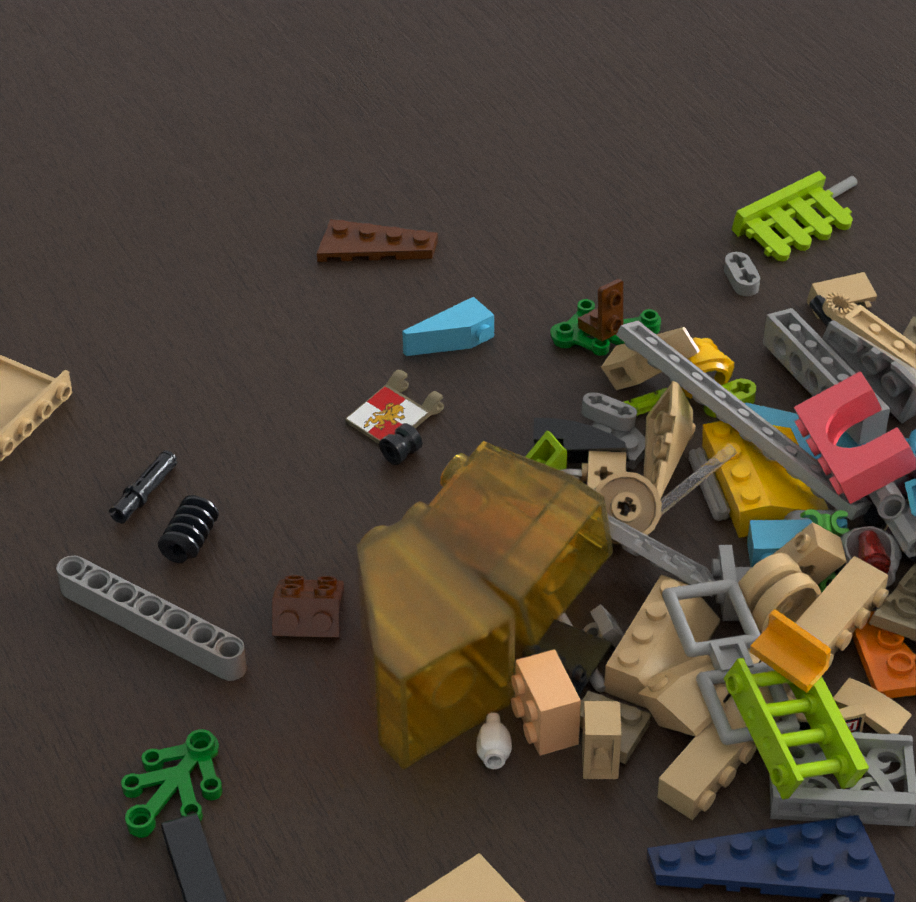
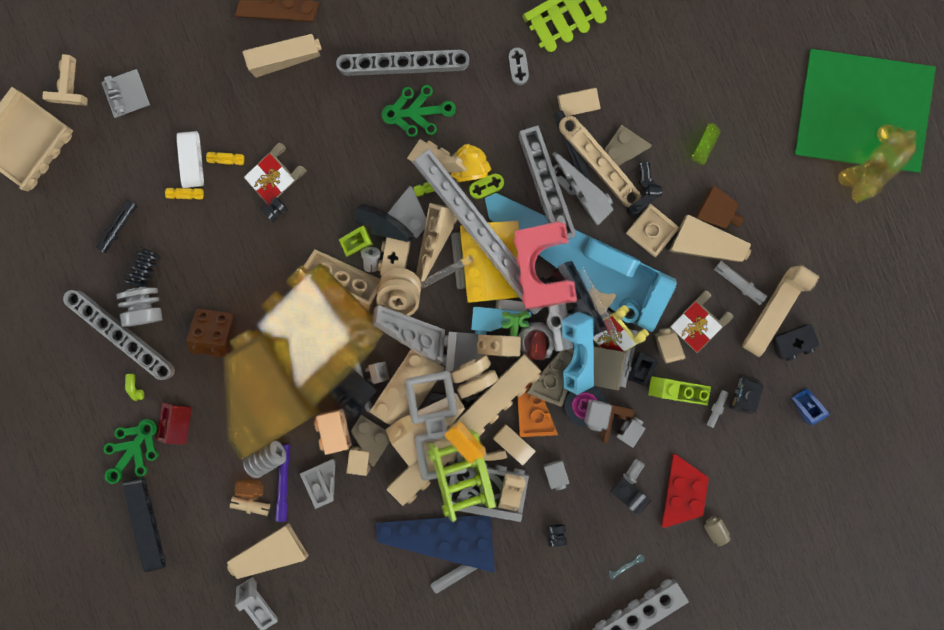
camera: 10 degrees right, 45 degrees up
(64, 346) = (66, 84): none -> tan bracket
(154, 342) = (125, 93): none -> light grey hinge
(170, 688) = (131, 389): none -> lime arm
(188, 566) = (139, 307): none -> light grey wheel
(250, 733) = (173, 424): none -> dark red panel
(252, 442) = (184, 193): none -> yellow axle
(261, 401) = (190, 159): none -> white beam
(315, 399) = (225, 158): none -> yellow axle
(389, 279) = (281, 54): none -> tan slope
(399, 815) = (249, 489): none -> clear orange brick
(403, 844) = (249, 506): none -> tan pin
(427, 757) = (265, 459): none -> light grey piece
(450, 330) = (322, 104): medium azure slope -> none
(458, 771) = (281, 505): none -> dark purple piece
(493, 742) = (304, 443): white plant -> none
(531, 796) = (320, 483): none -> light grey wing
(570, 277) = (394, 58): none -> light grey beam
(608, 317) = (414, 115): reddish brown bracket -> none
(608, 411) = (408, 195): light grey beam -> none
(889, 748) = (511, 492): none -> tan brick

